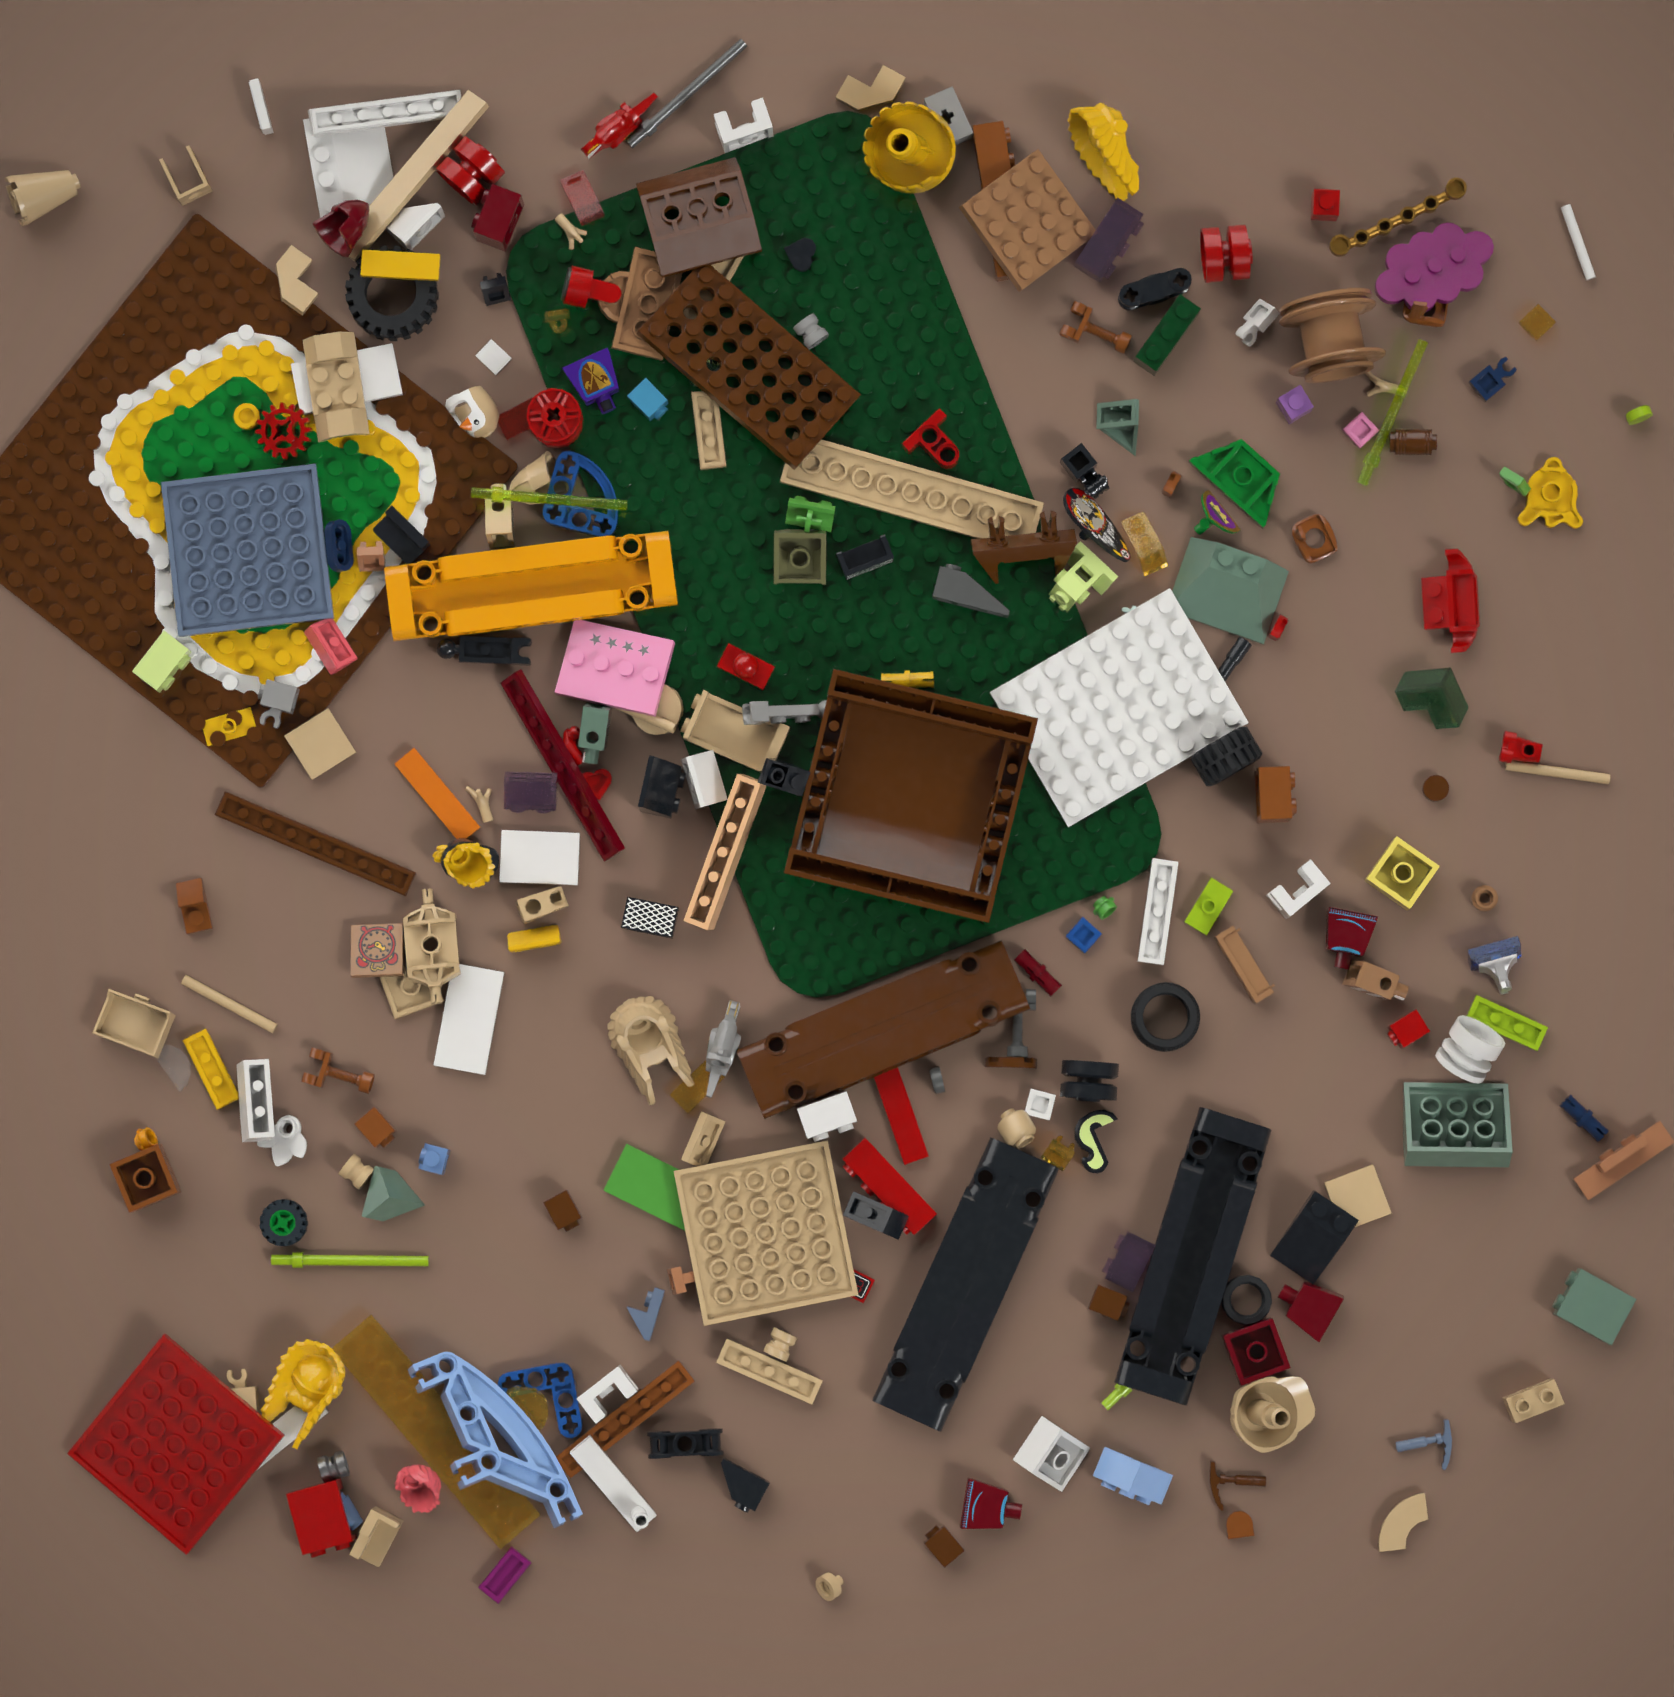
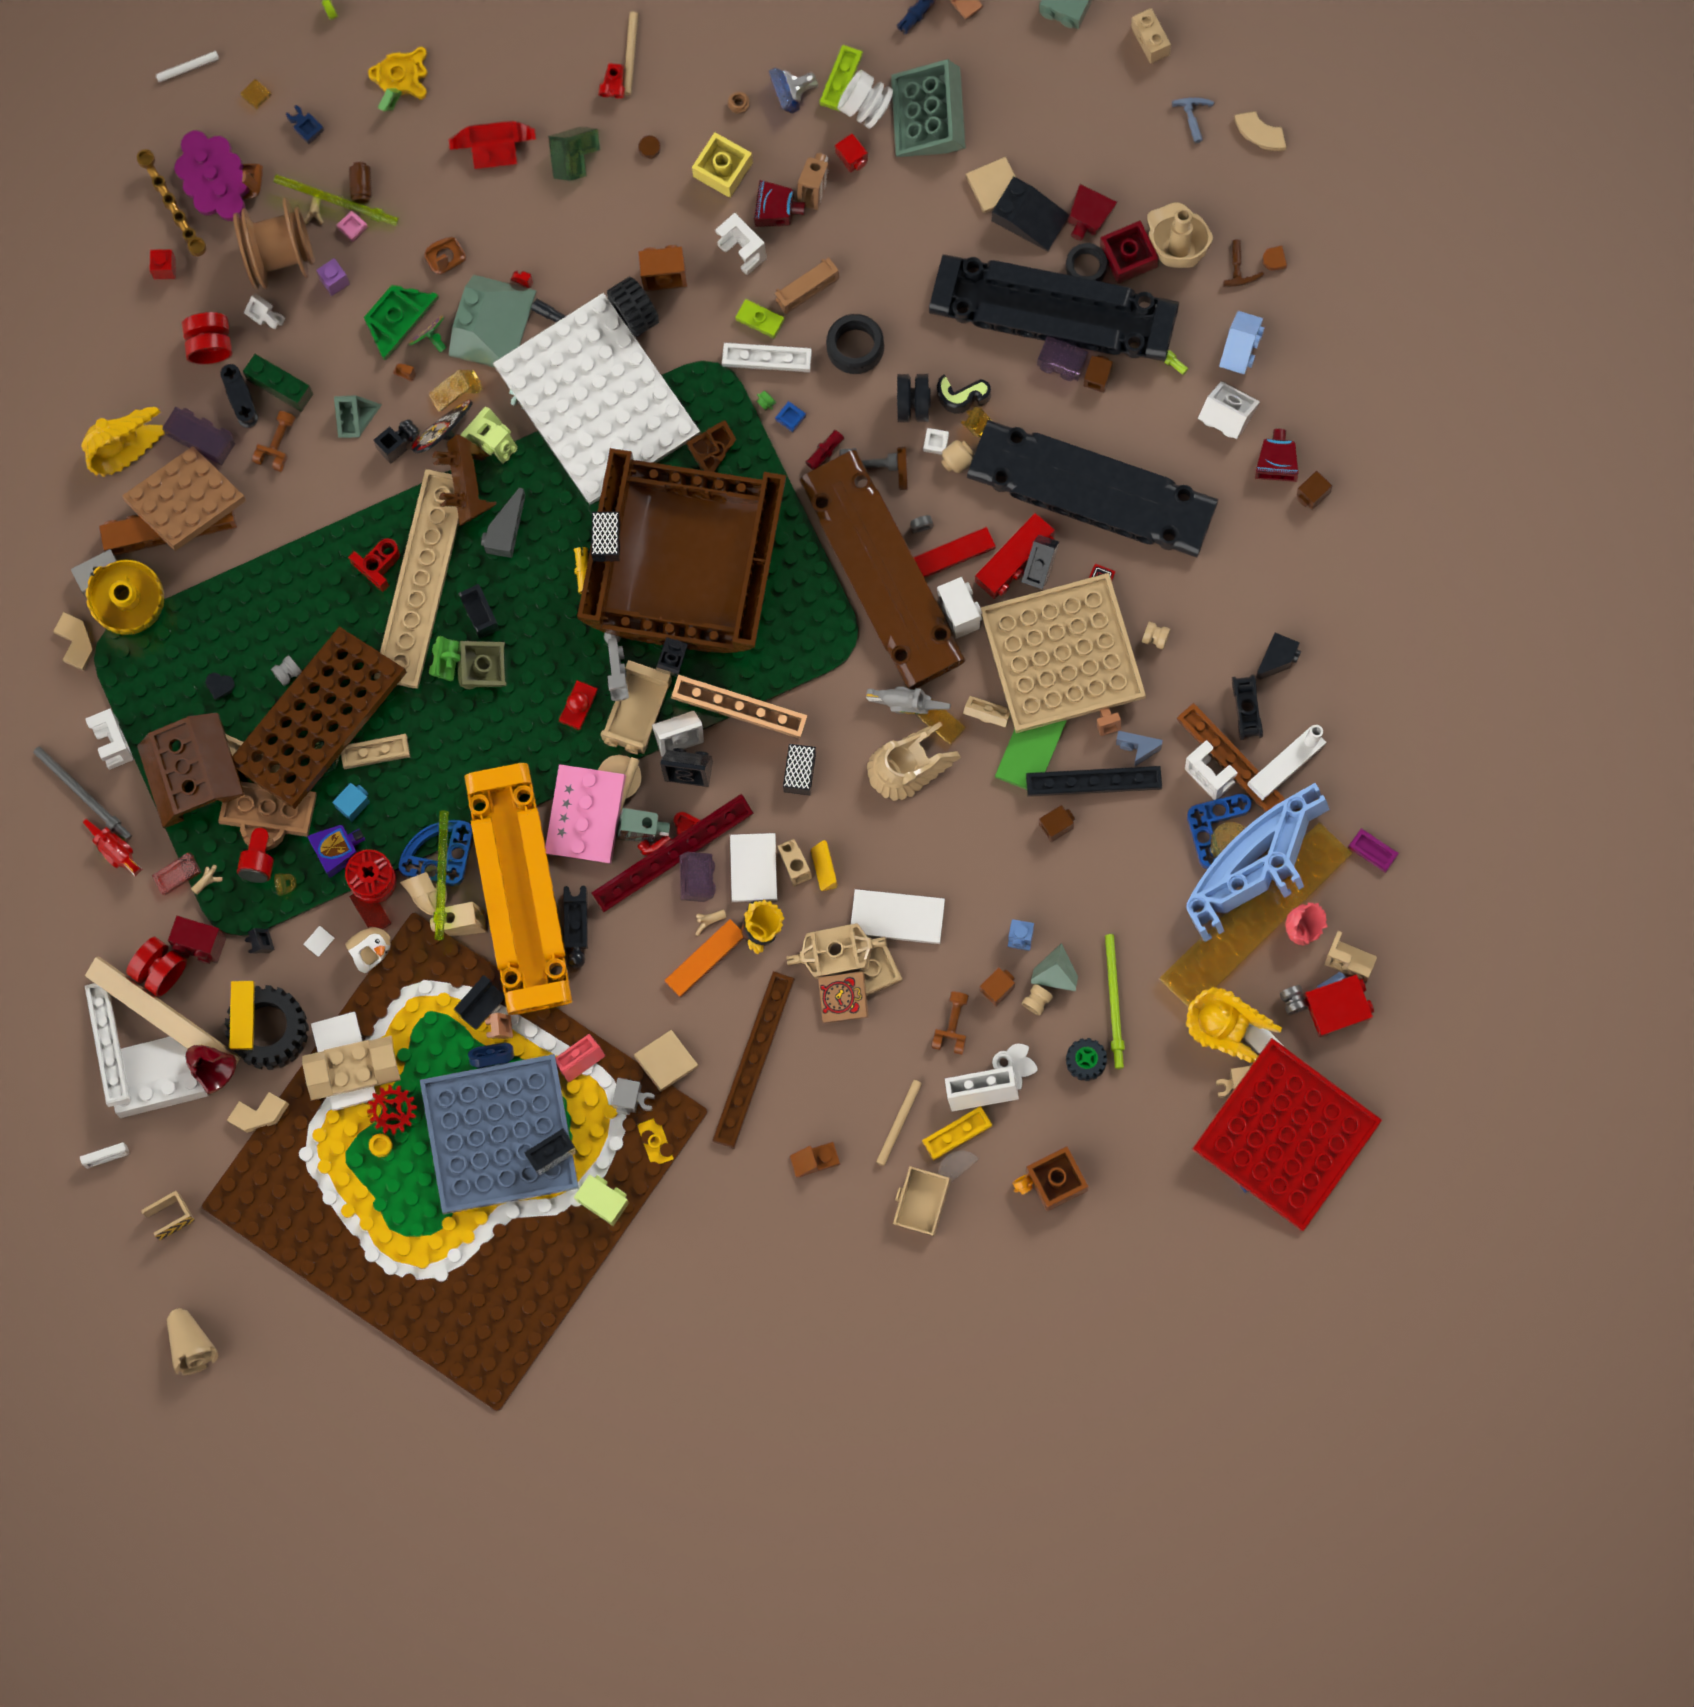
camera: 90 degrees left, 10 degrees down
(215, 607) = (550, 1152): none -> black panel
(415, 223) = (204, 1012): white slope -> none
(610, 1257) = (1093, 781): none -> black tile
(769, 1371) = (1179, 643): tan plate -> none
(829, 1586) = (1357, 580): tan tile -> none
(925, 707) = (605, 536): none -> black panel
(1048, 839) = (711, 446): none -> reddish brown slope

